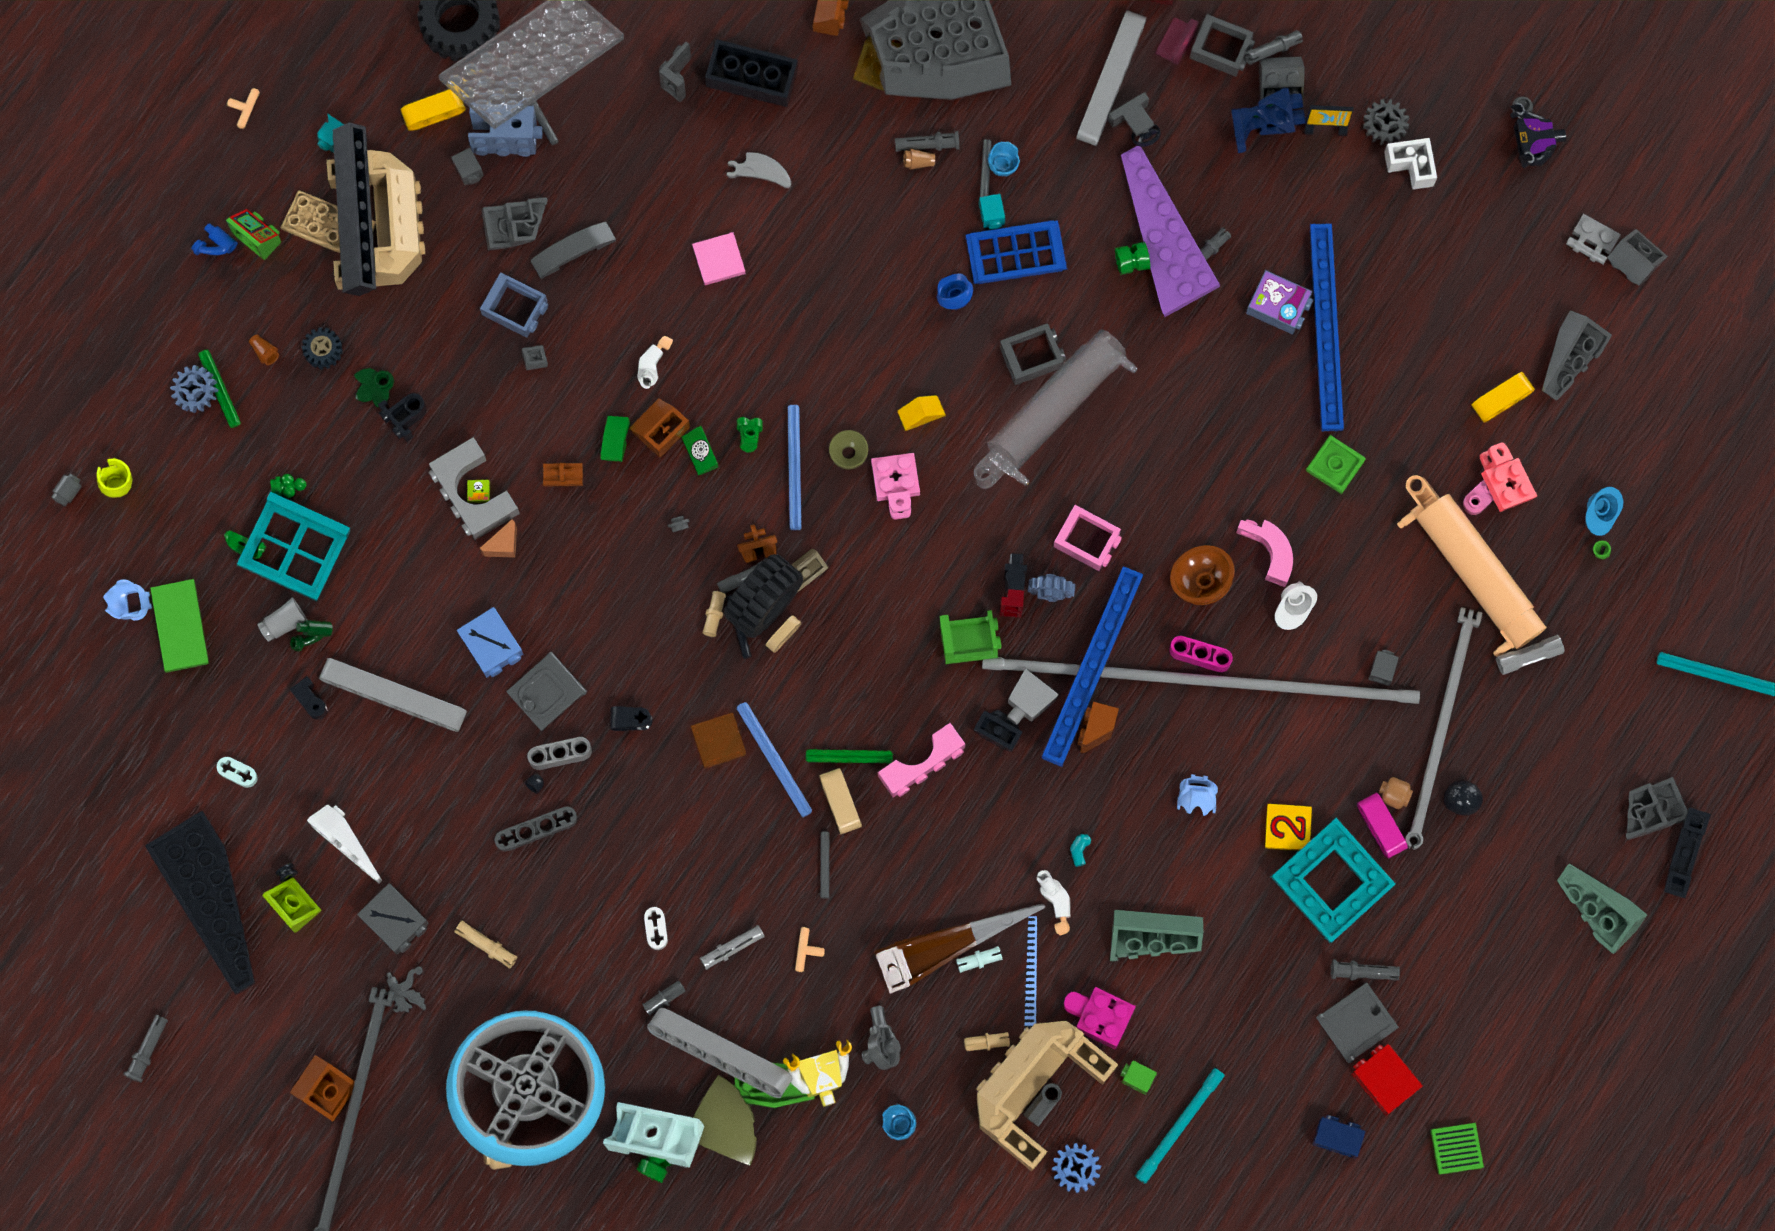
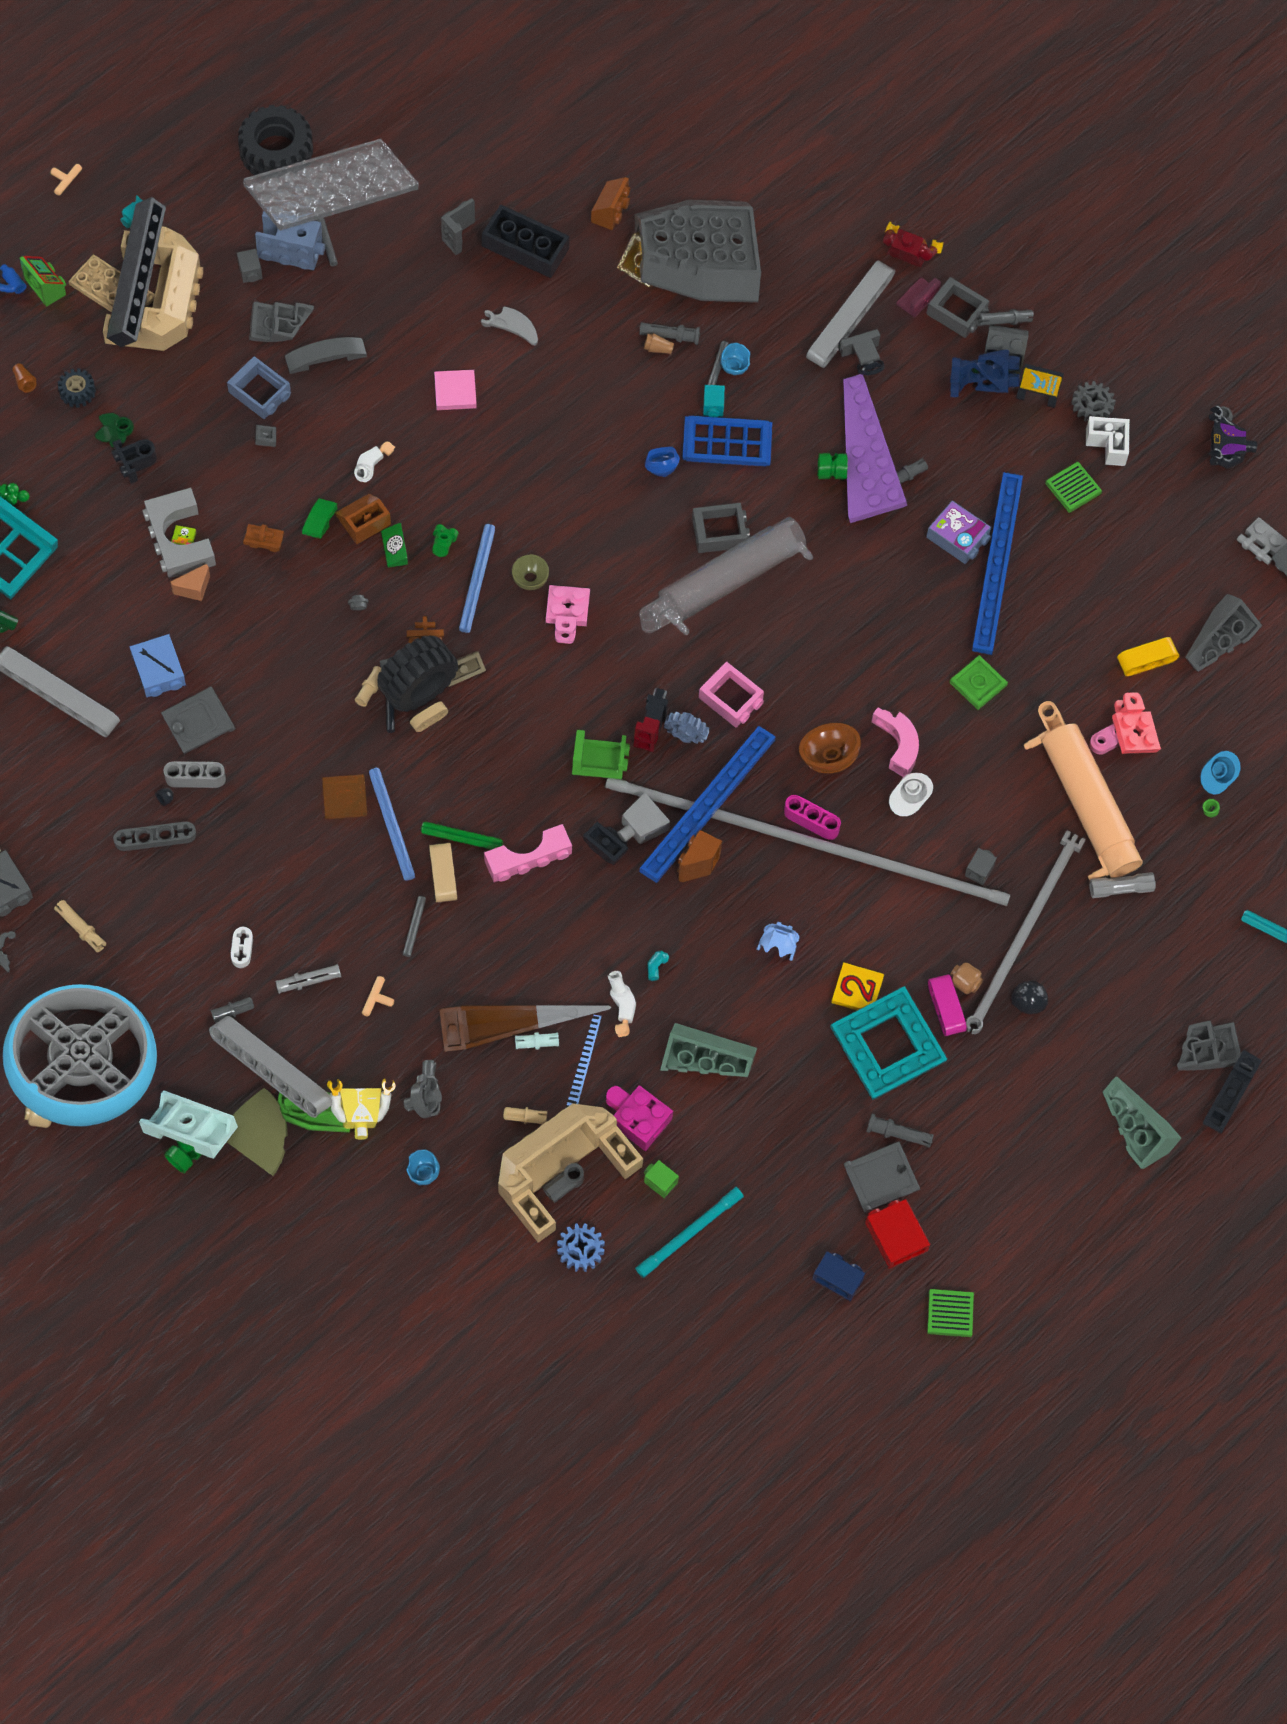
camera: 10 degrees right, 10 degrees down
(432, 110) = (231, 213): yellow beam -> none
(625, 718) = (264, 759): black piece -> none
(921, 411) = (605, 555): yellow slope -> none
(1385, 222) = (1073, 487): none -> bright green tile

